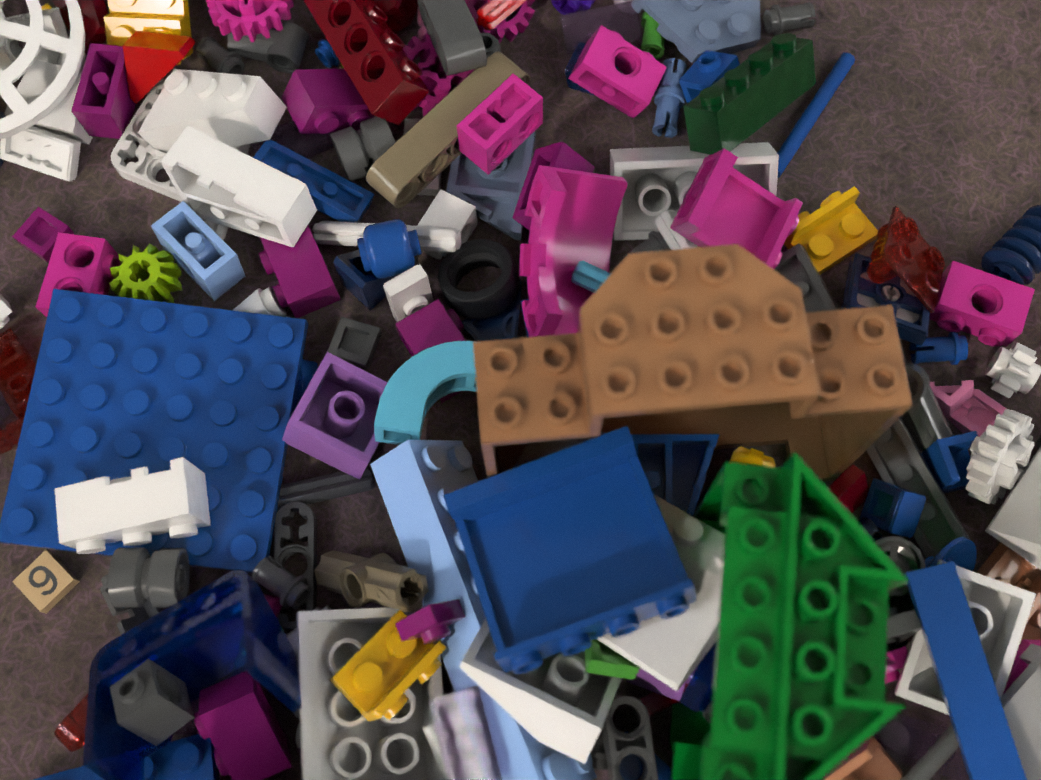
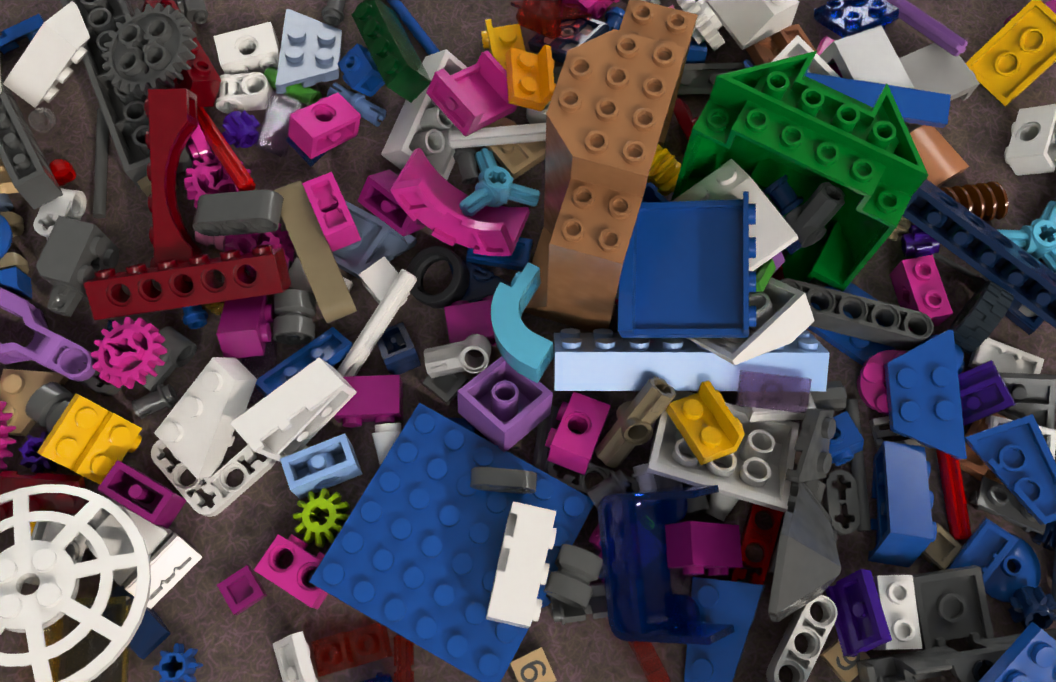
camera: 70 degrees left, 0 degrees up
(151, 58) = (138, 443): red slope -> none
(151, 702) = (669, 597): dark grey brick -> none
(235, 448) = (503, 480): none -> dark grey beam
(318, 531) = (574, 449): none -> dark pink brick
(380, 344) = (455, 357): none -> light grey piece
(388, 248) = (395, 320): blue head -> none
(408, 292) = (434, 324): white plate -> none
(431, 622) = (689, 382): magenta plate -> none
(801, 260) = (530, 77): none -> light orange bracket
(893, 508) = (699, 94): blue slope -> none

